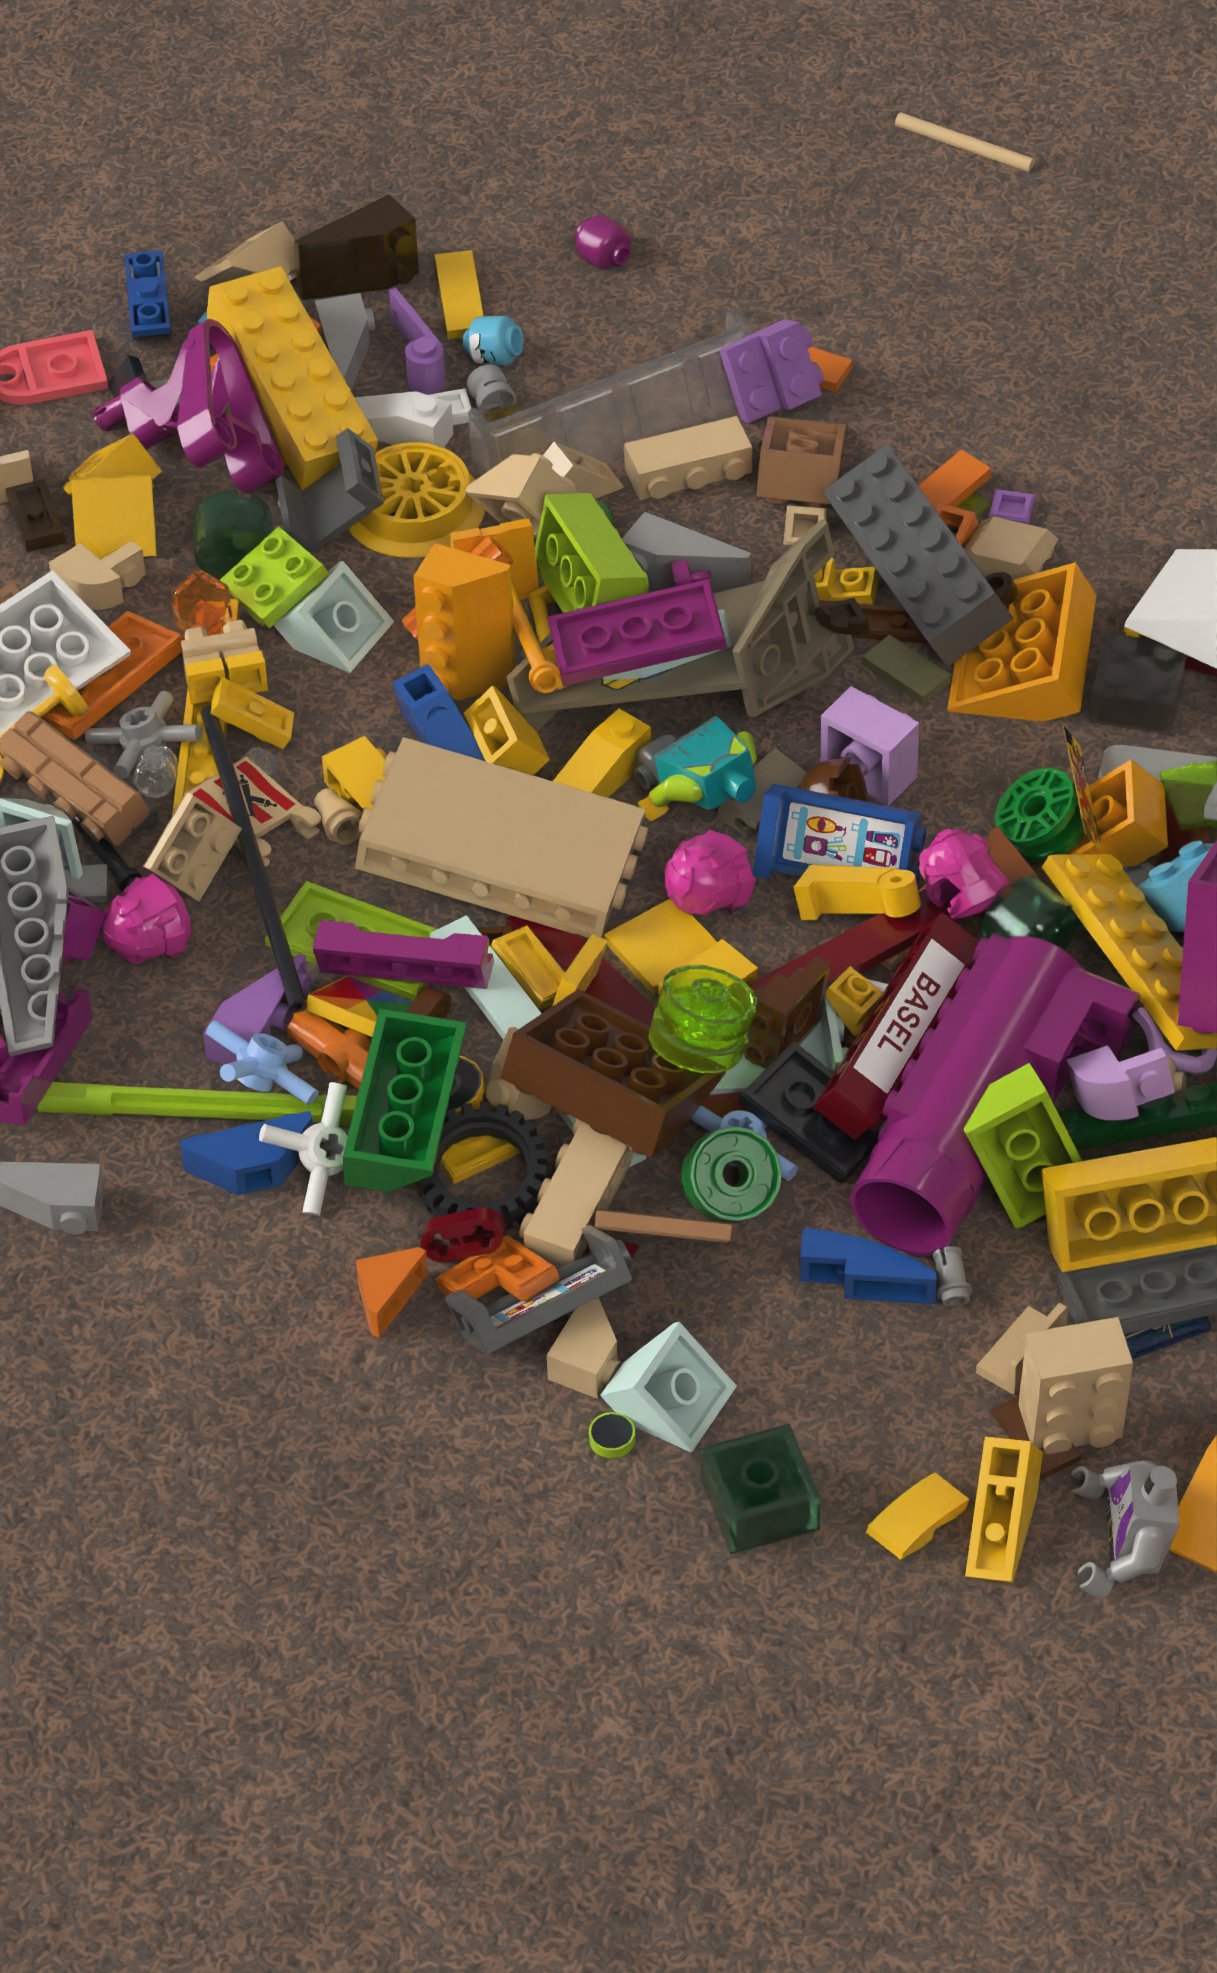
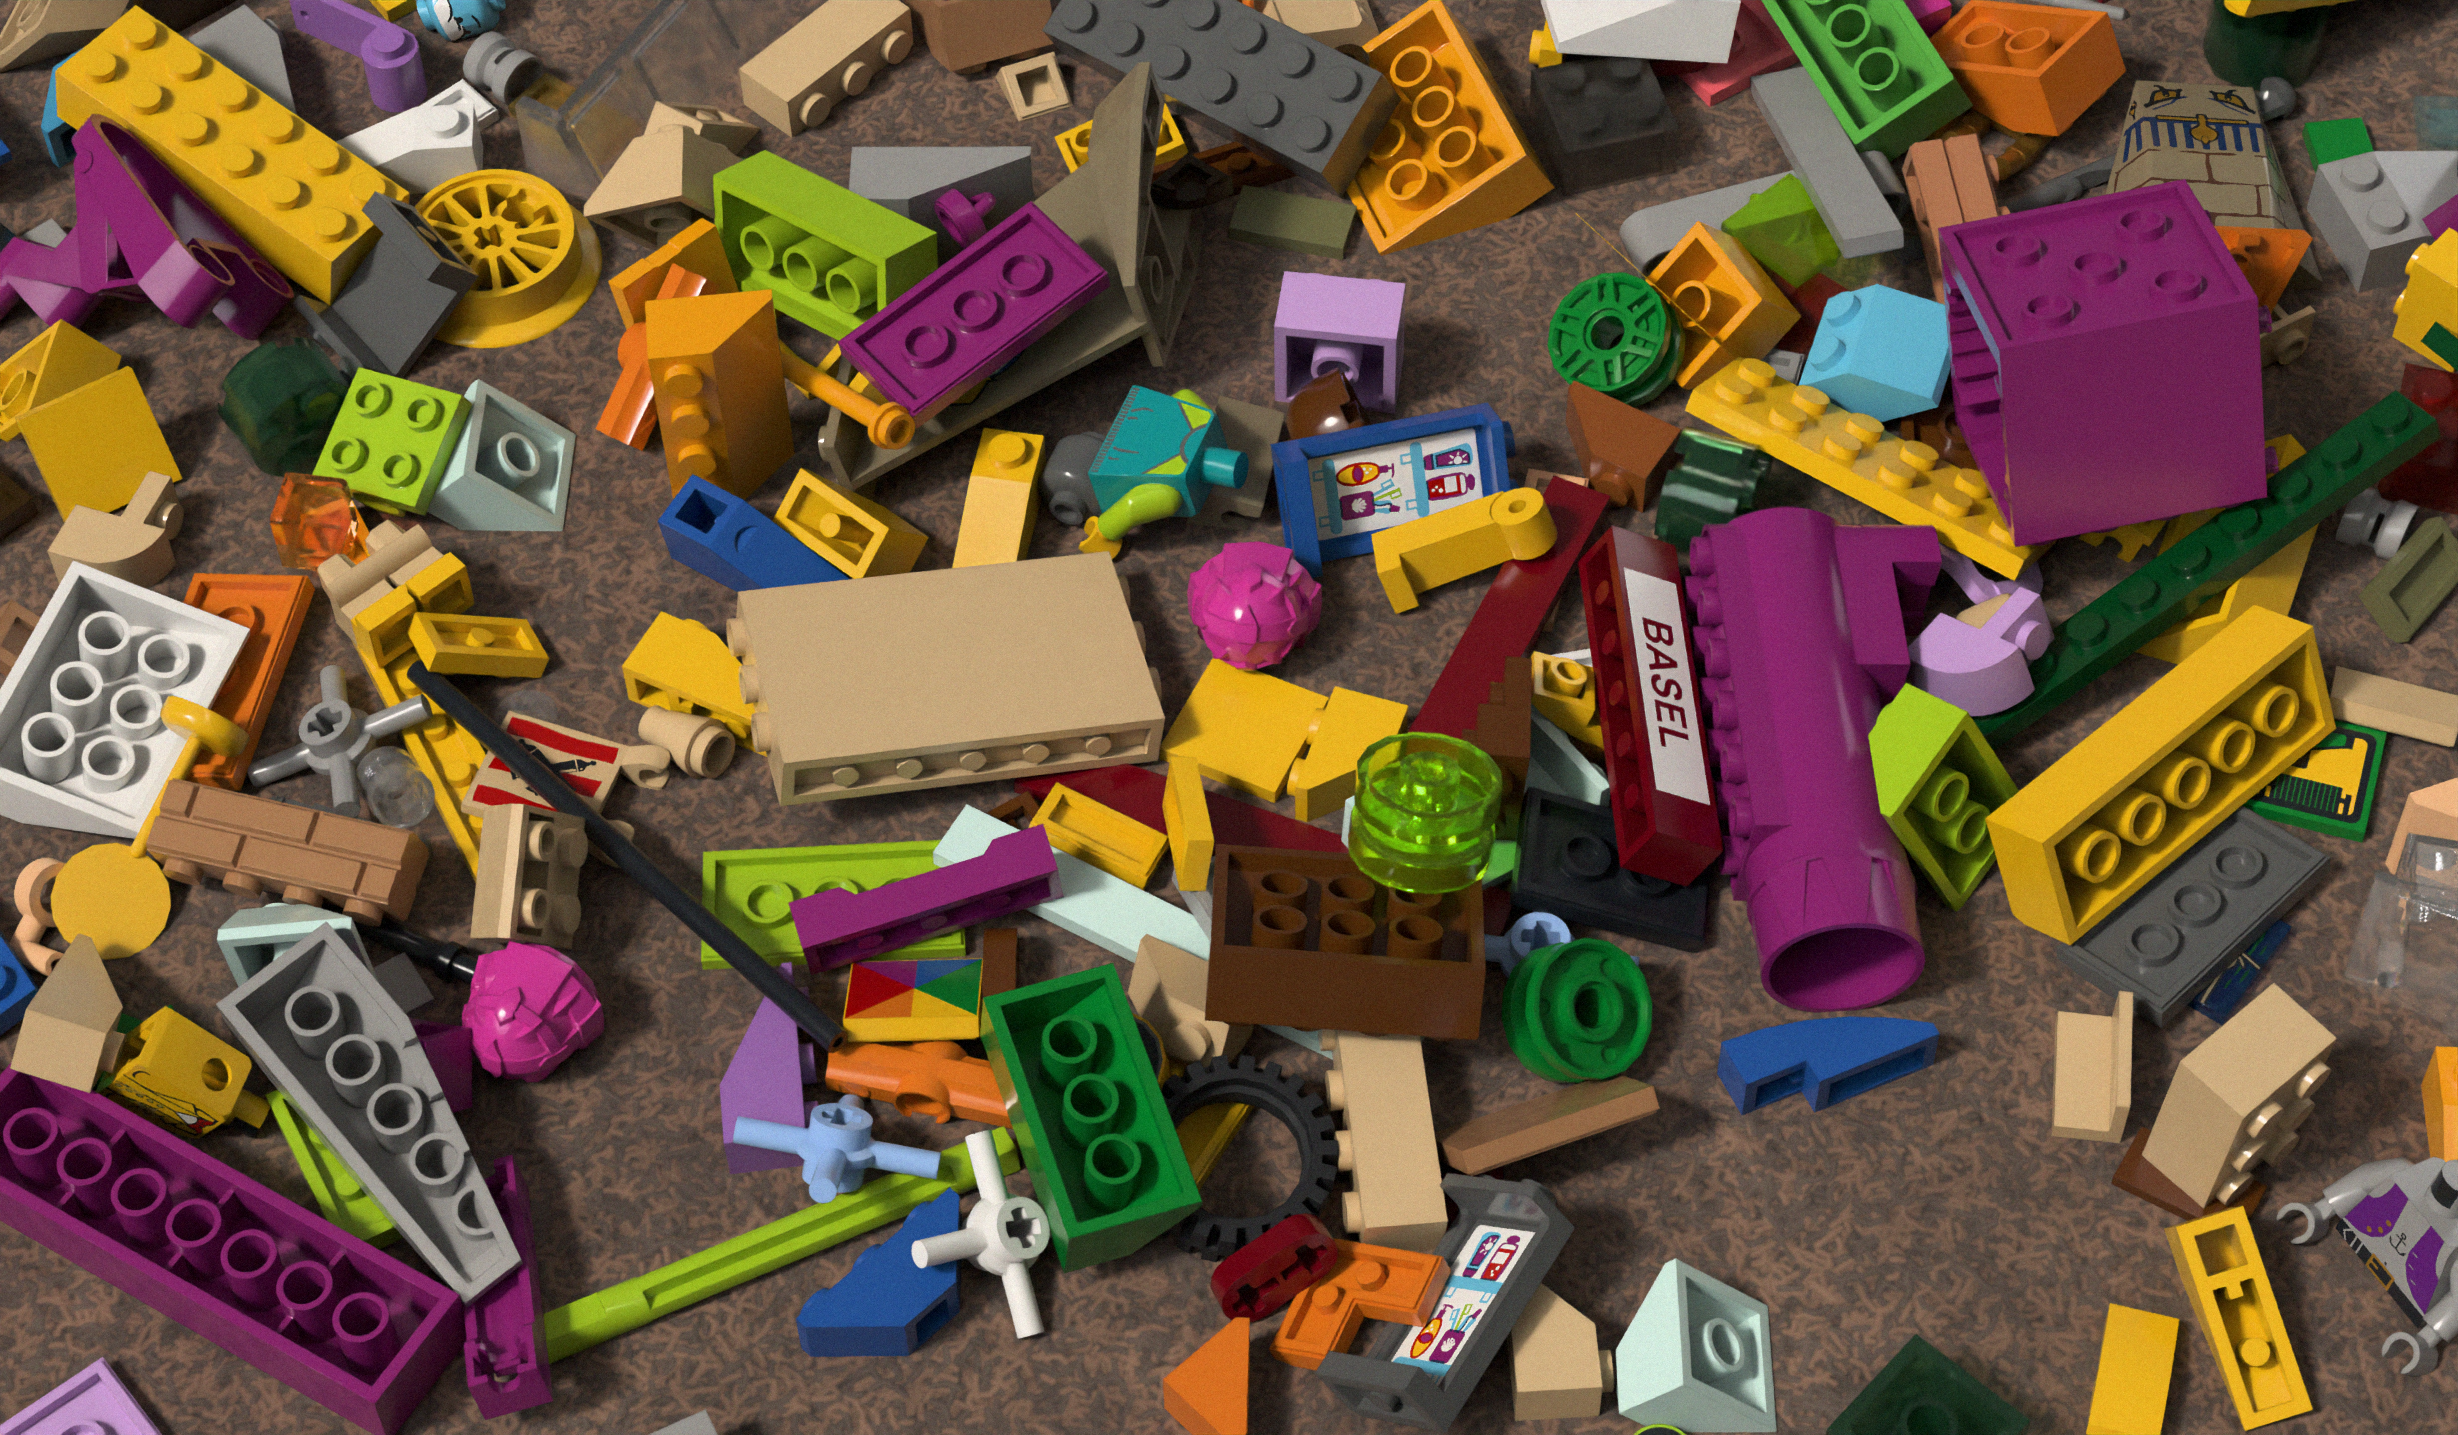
camera: 30 degrees left, 5 degrees up
(951, 1277) = (1954, 1030): light grey pin -> none
(961, 866) = (1602, 445): dark pink helmet -> none

